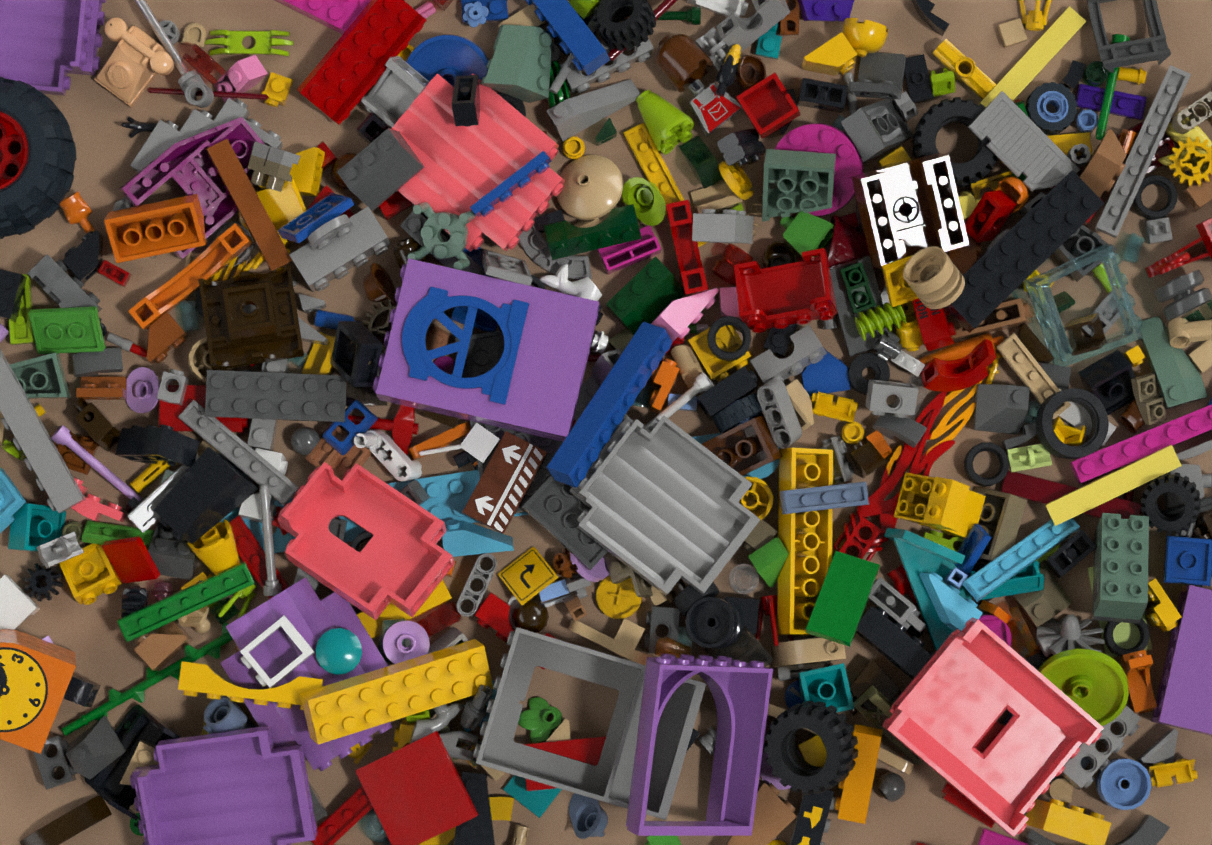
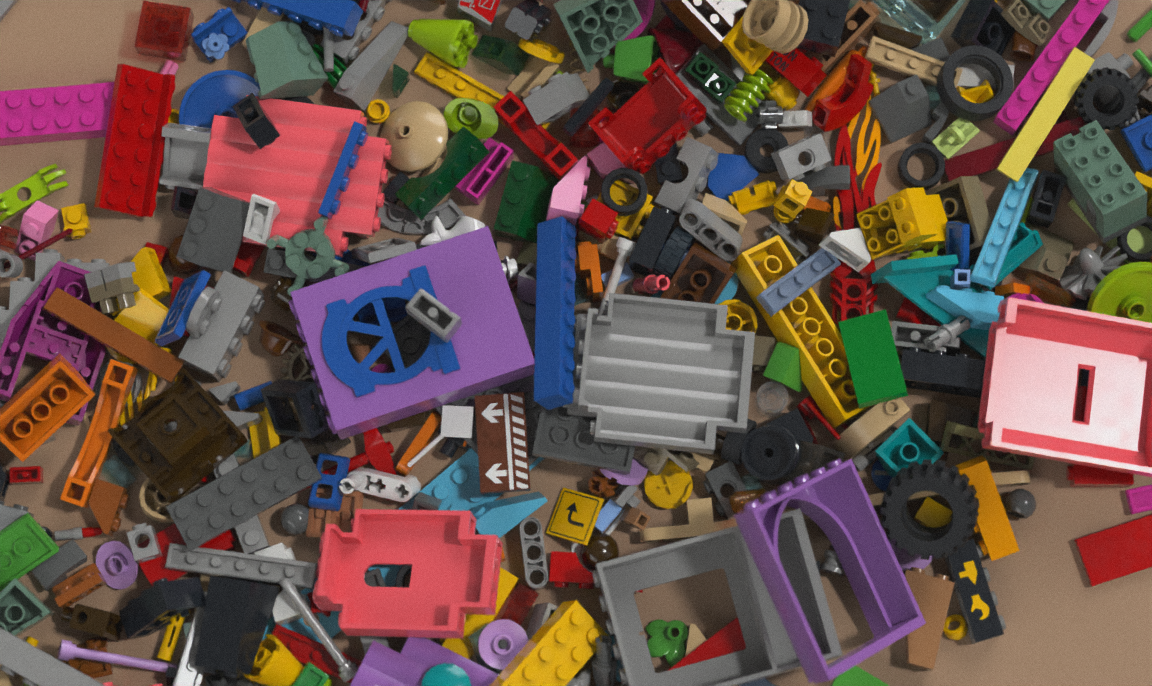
camera: 30 degrees left, 5 degrees down
(421, 183) = (260, 218): none -> white slope
(508, 350) = (433, 315): none -> light grey brick
(692, 351) = (598, 221): none -> red brick
(705, 426) = (651, 284): none -> coral pin
(743, 251) = (588, 107): none -> black axle
(866, 423) = (796, 192): none -> yellow brick
(882, 495) = (848, 247): none -> white slope
(916, 615) = (947, 333): none -> light grey pin

